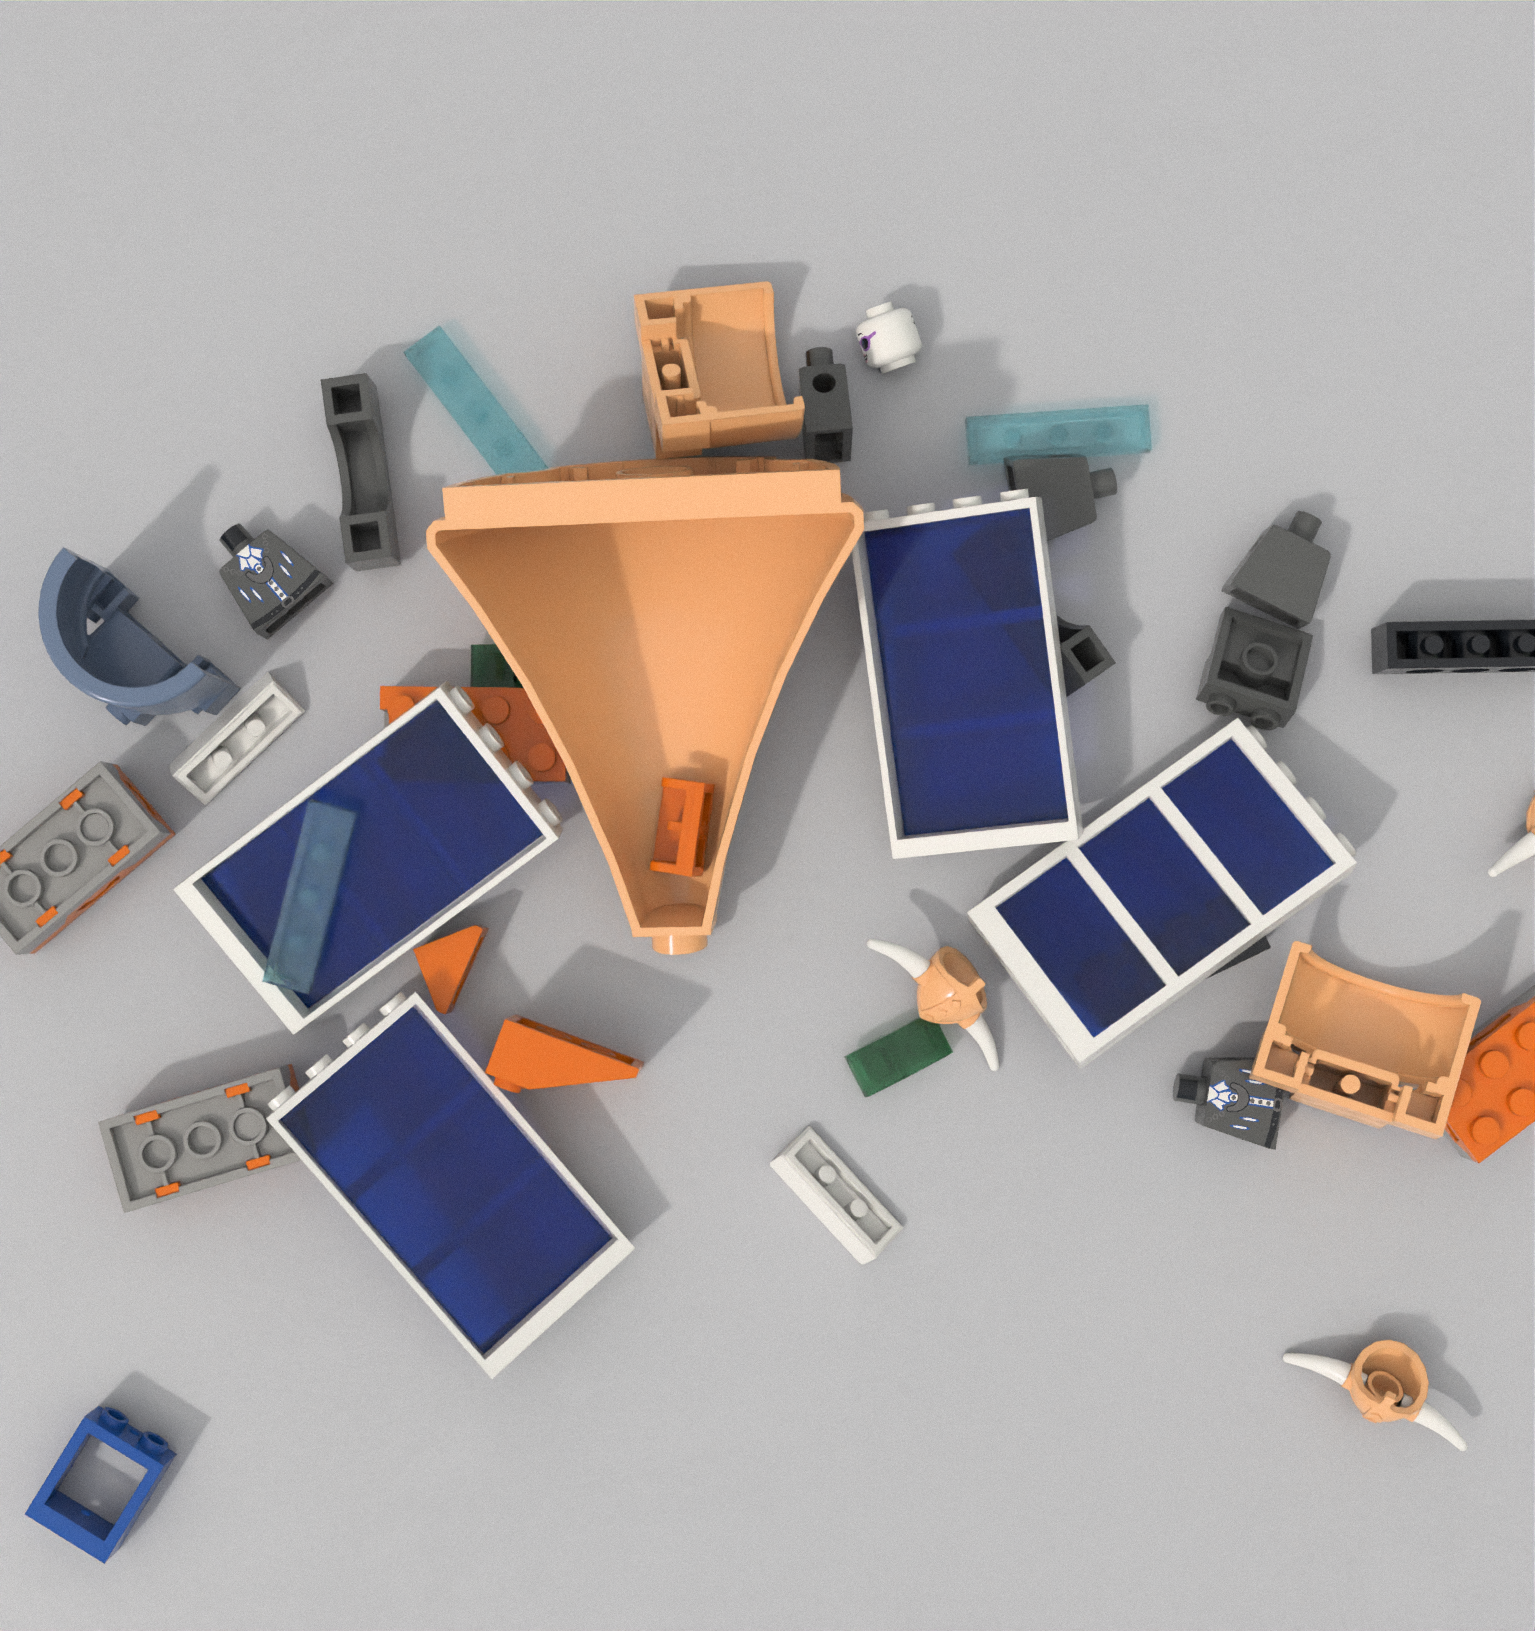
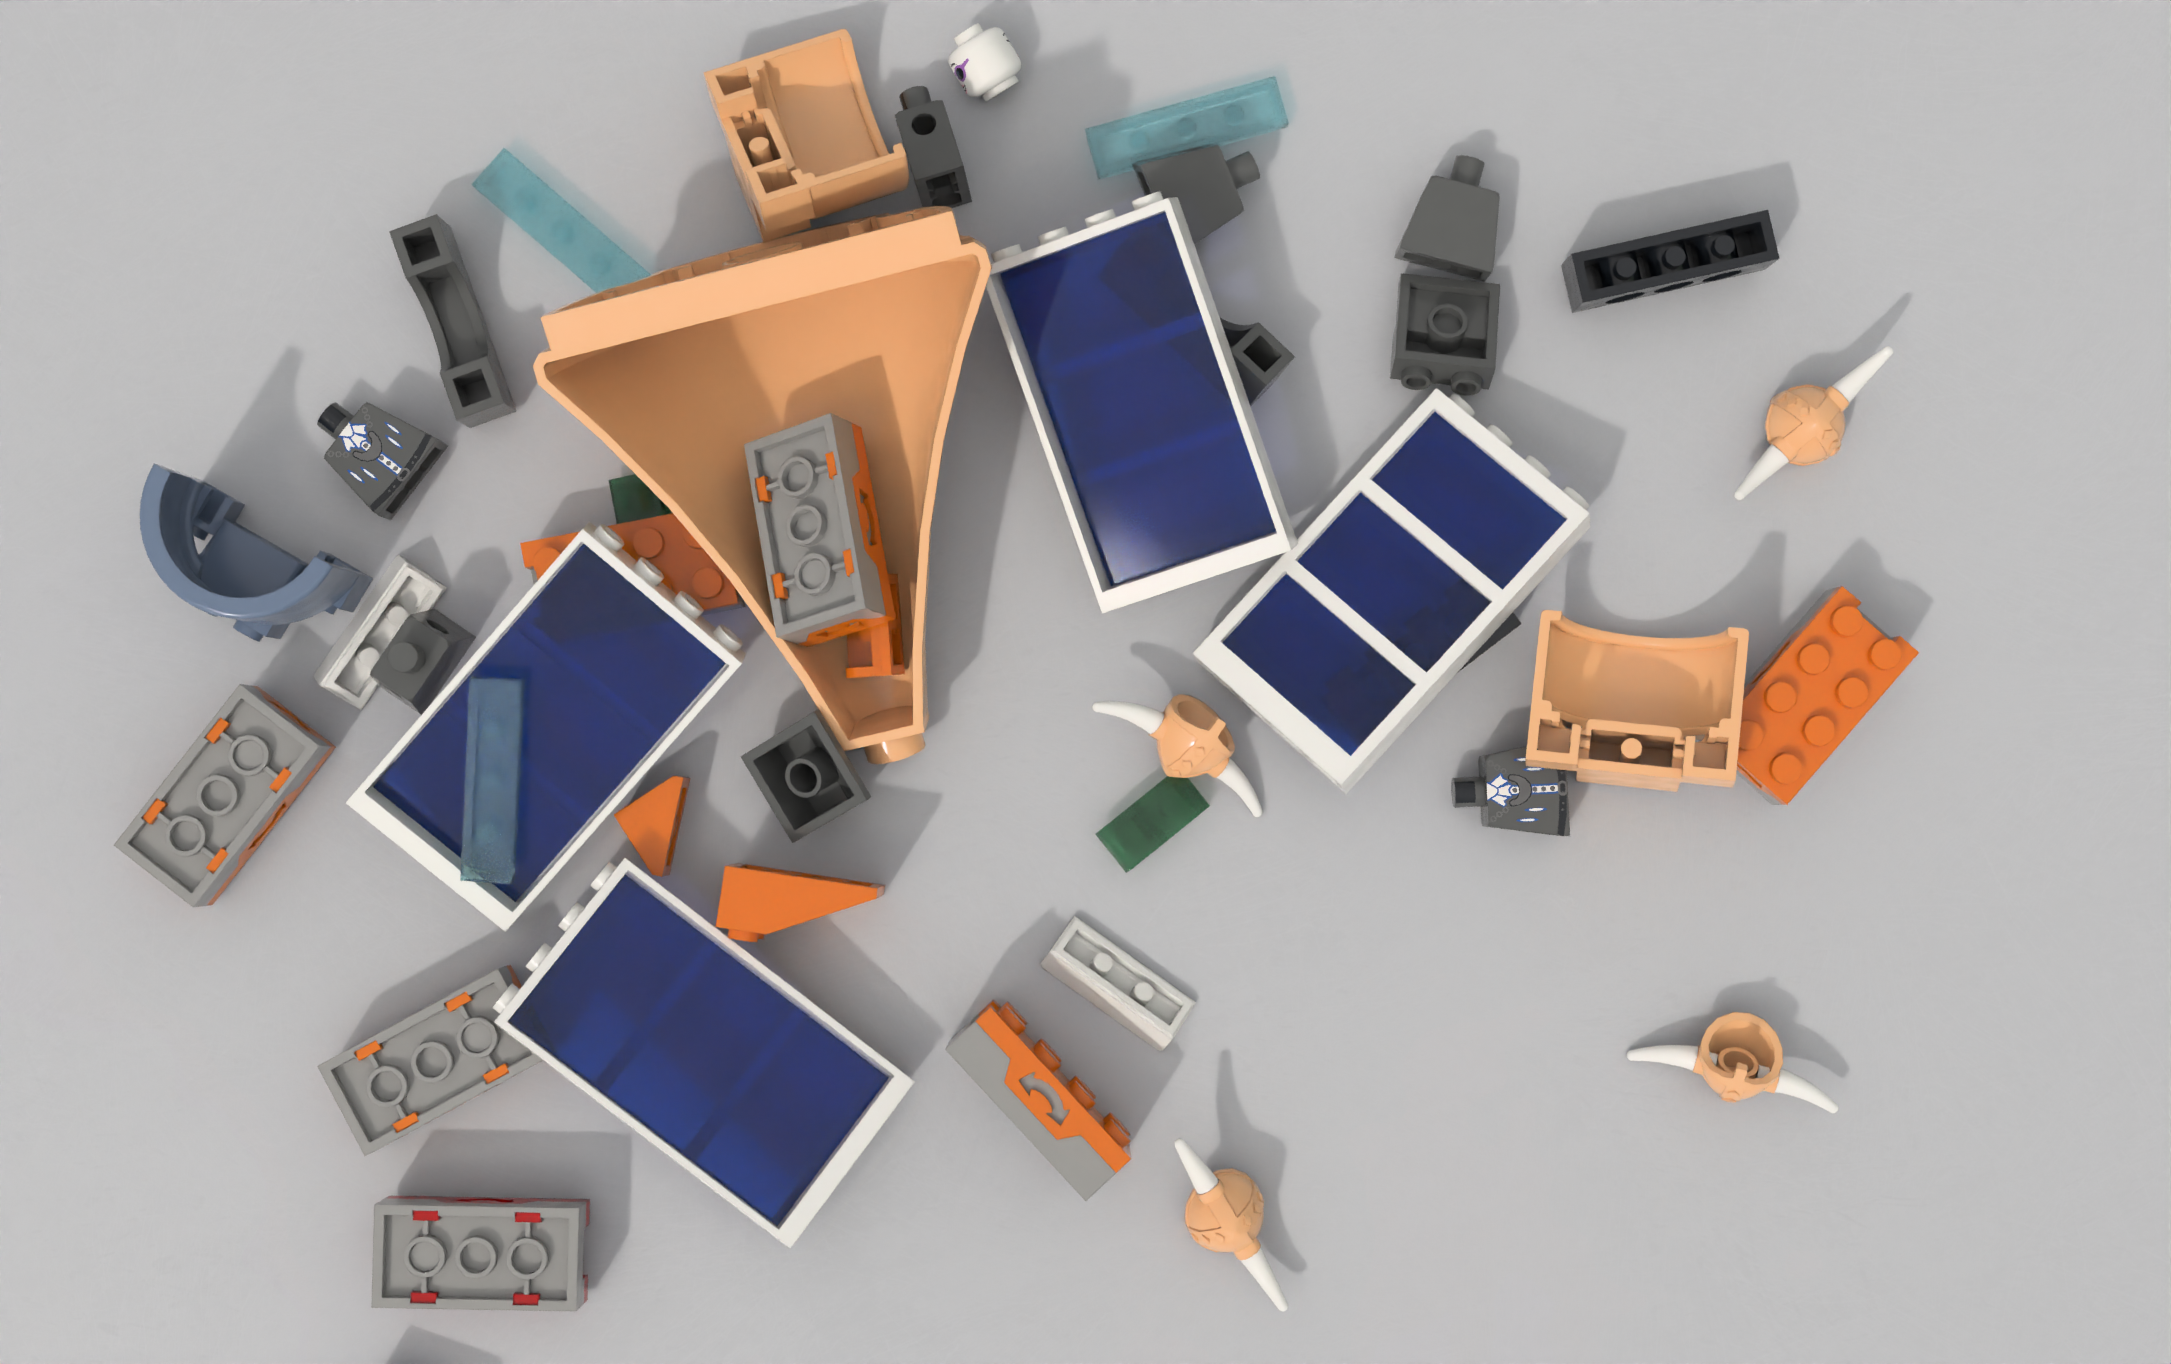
camera: 10 degrees left, 0 degrees up
(209, 1321) = (479, 1253): none -> light grey piece
(269, 770) = (421, 658): none -> dark grey torso
(594, 951) = (805, 776): none -> dark grey slope
(653, 733) = (819, 531): none -> light grey piece
(745, 1289) = (1040, 1099): none -> piece
(892, 1429) = (1227, 1216): none -> light nougat helmet

